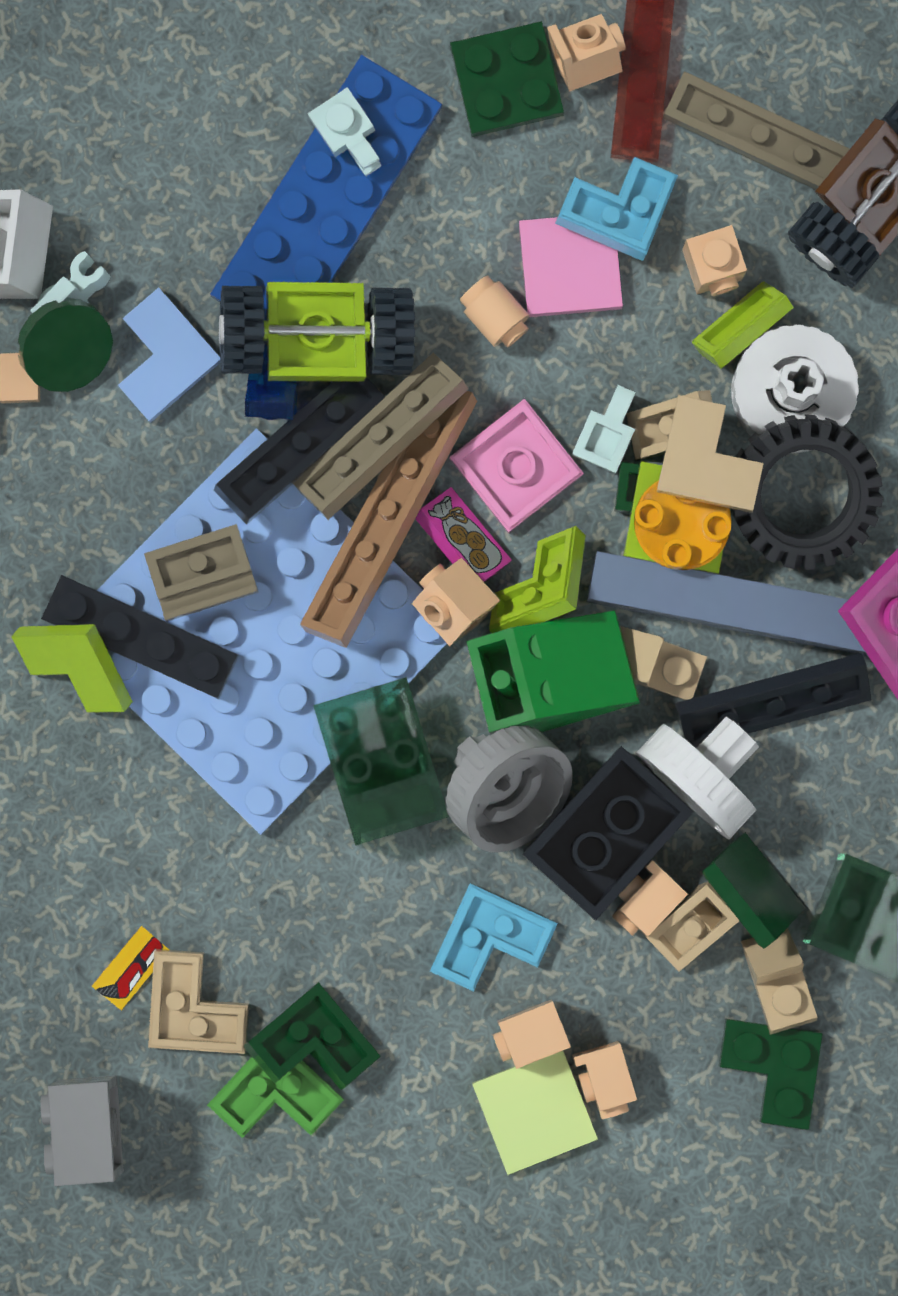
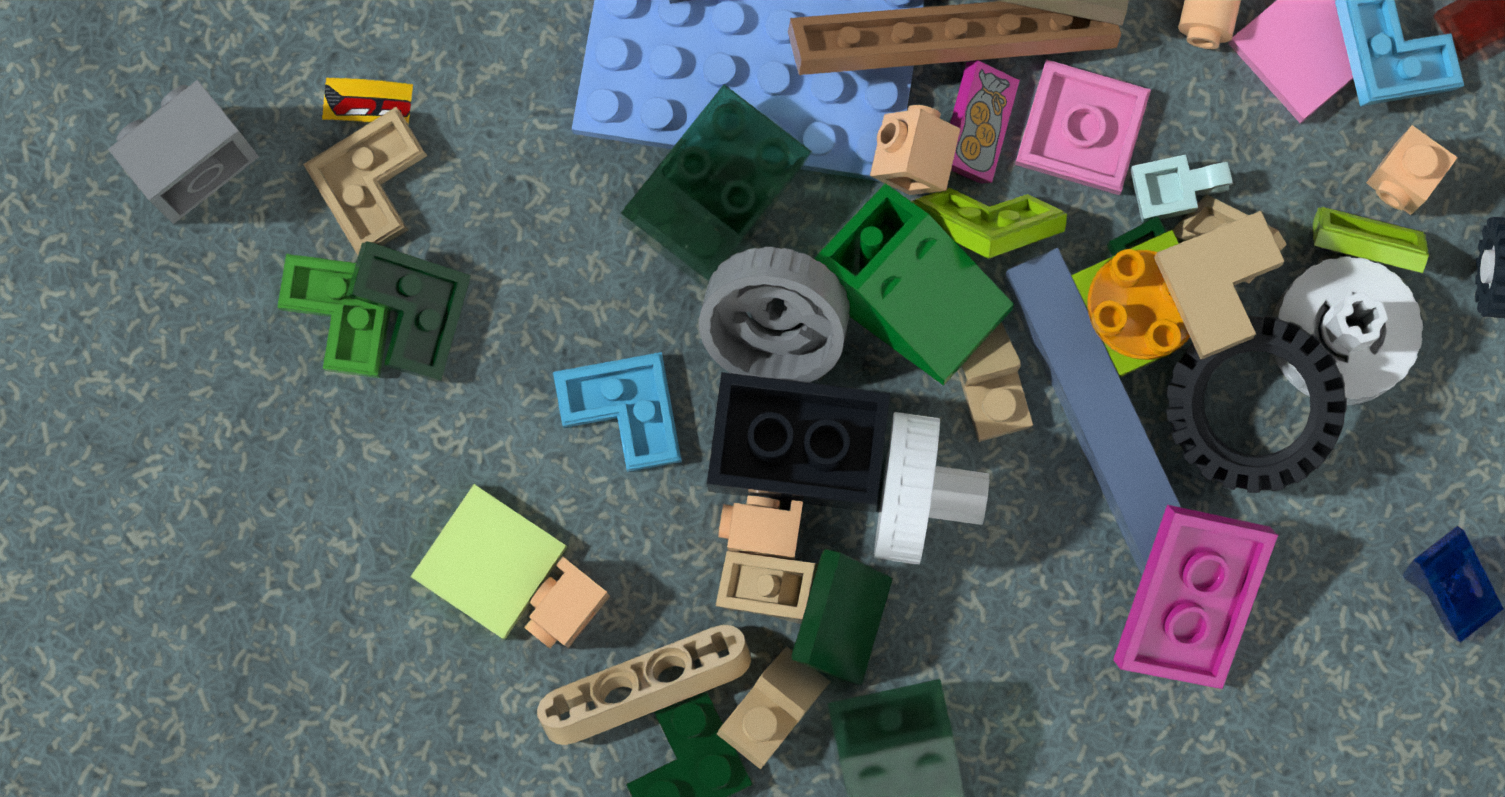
camera: 60 degrees right, 5 degrees down
(531, 1035) = (557, 504): light nougat brick -> none
(708, 1063) = (647, 692): none -> tan beam
(778, 699) = (1043, 520): black plate -> none

